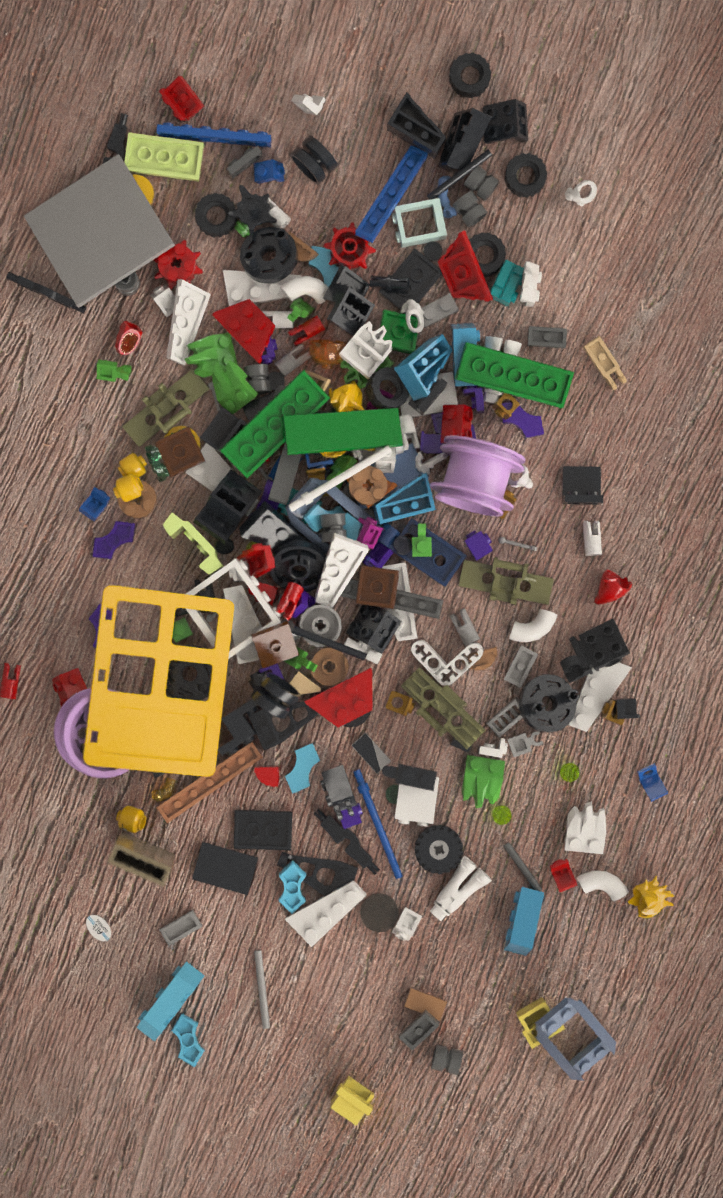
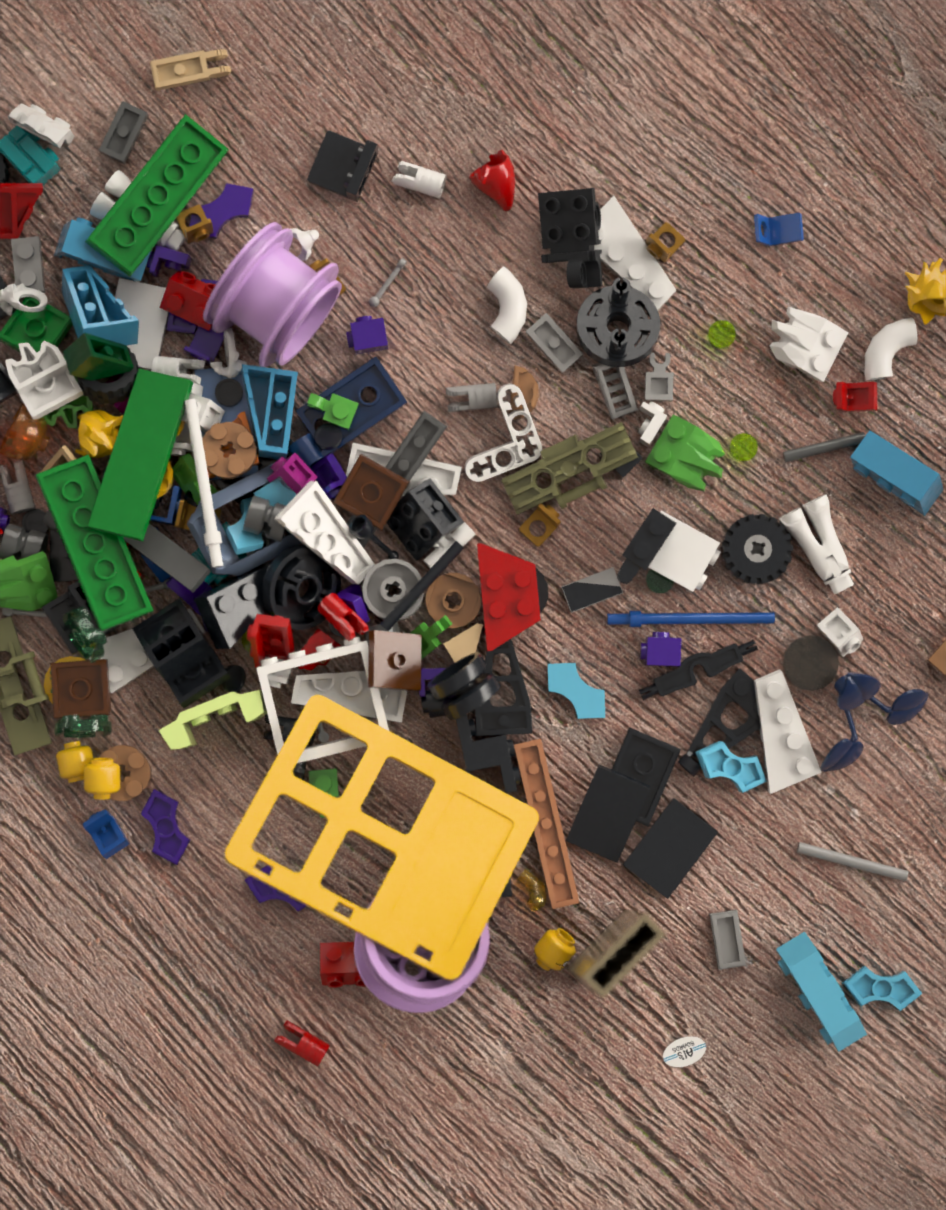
camera: 65 degrees left, 0 degrees up
(199, 687) = (411, 787): black piece -> none
(214, 440) = (84, 635): none -> clear green plate
(231, 819) = (608, 813): none -> black tile
(268, 775) = (567, 739): red brick -> none
(339, 791) = (626, 651): hinge -> none
(351, 591) = (363, 529): none -> black hinge
(371, 949) = (853, 691): none -> dark blue plant
(393, 379) = (97, 358): none -> dark green slope
(406, 470) = (229, 392): none -> black piece
(422, 405) = (147, 333): black bracket -> none
(504, 587) = (439, 322): olive piece -> none
(625, 709) = (666, 225): black panel -> none

